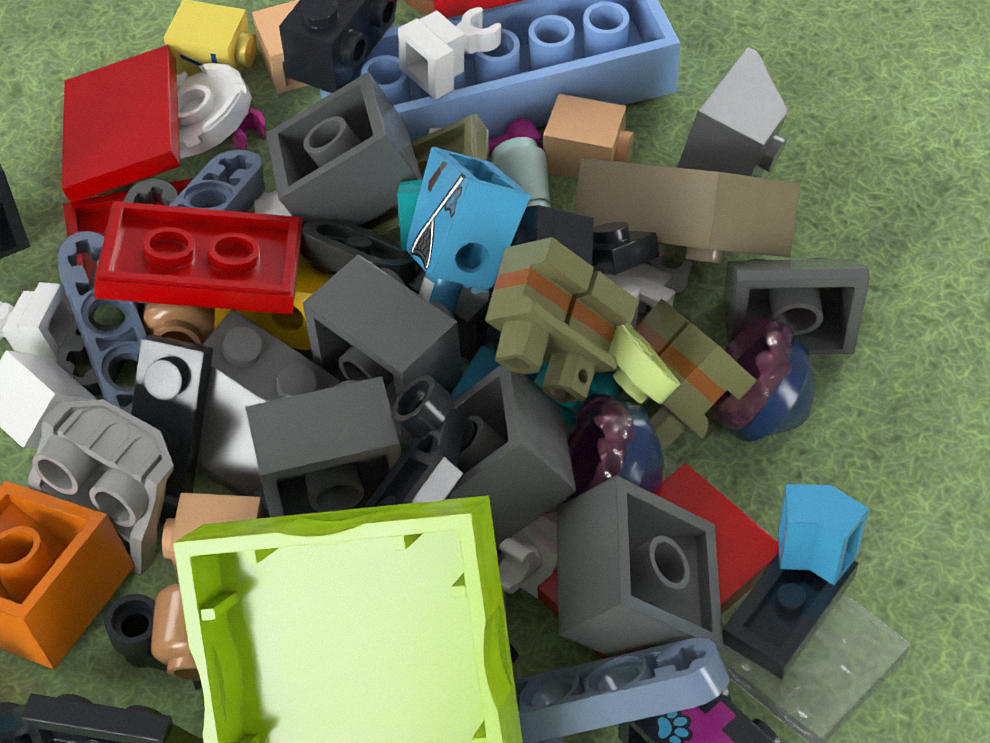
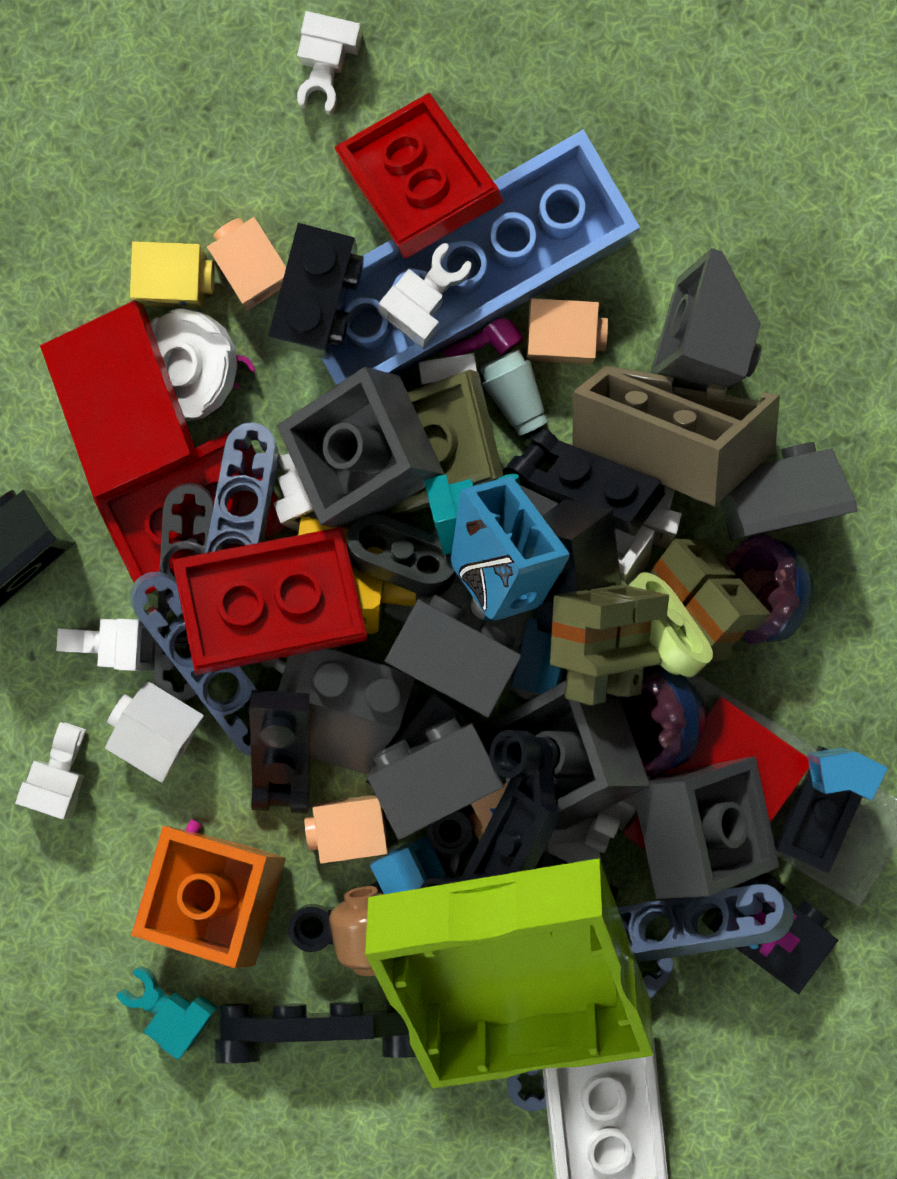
camera: 15 degrees left, 35 degrees up
(109, 464) = (252, 814): light grey slope -> none

